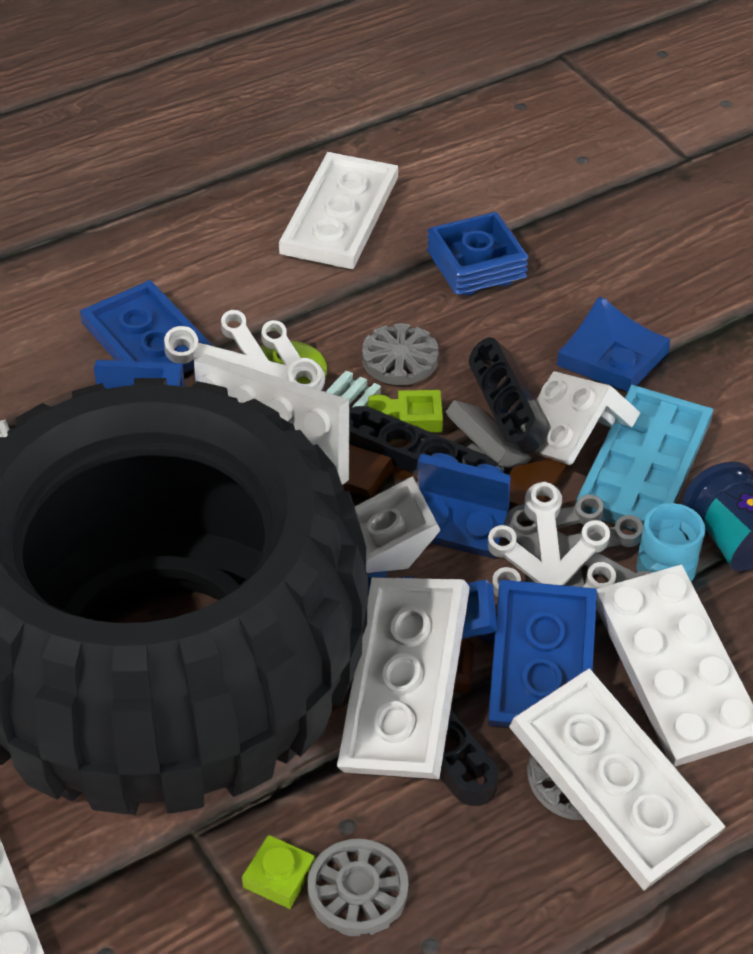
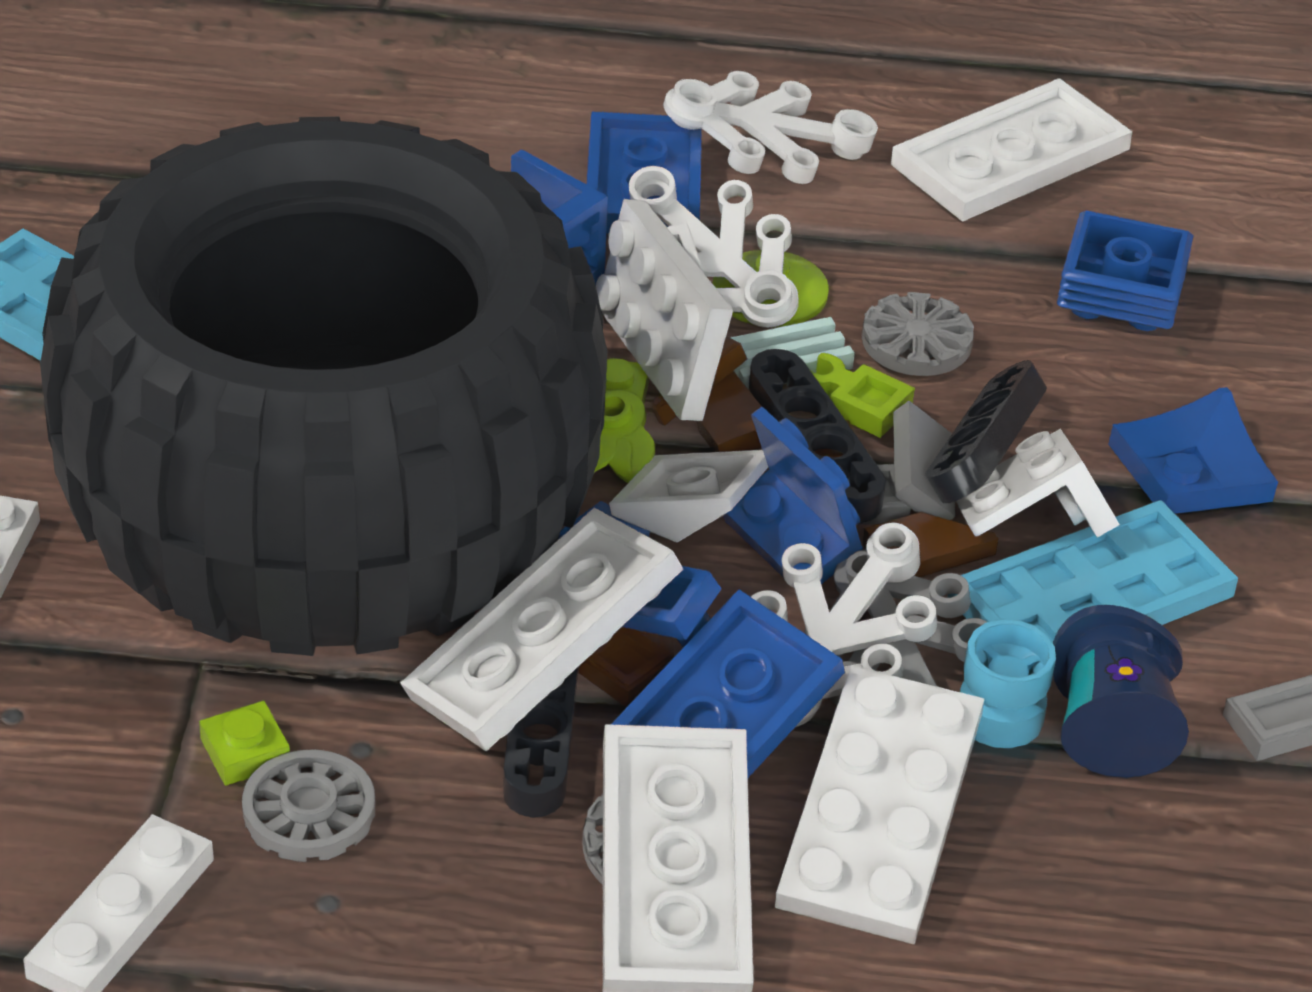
camera: 35 degrees right, 5 degrees down
(149, 274) = (698, 105): none -> white plant

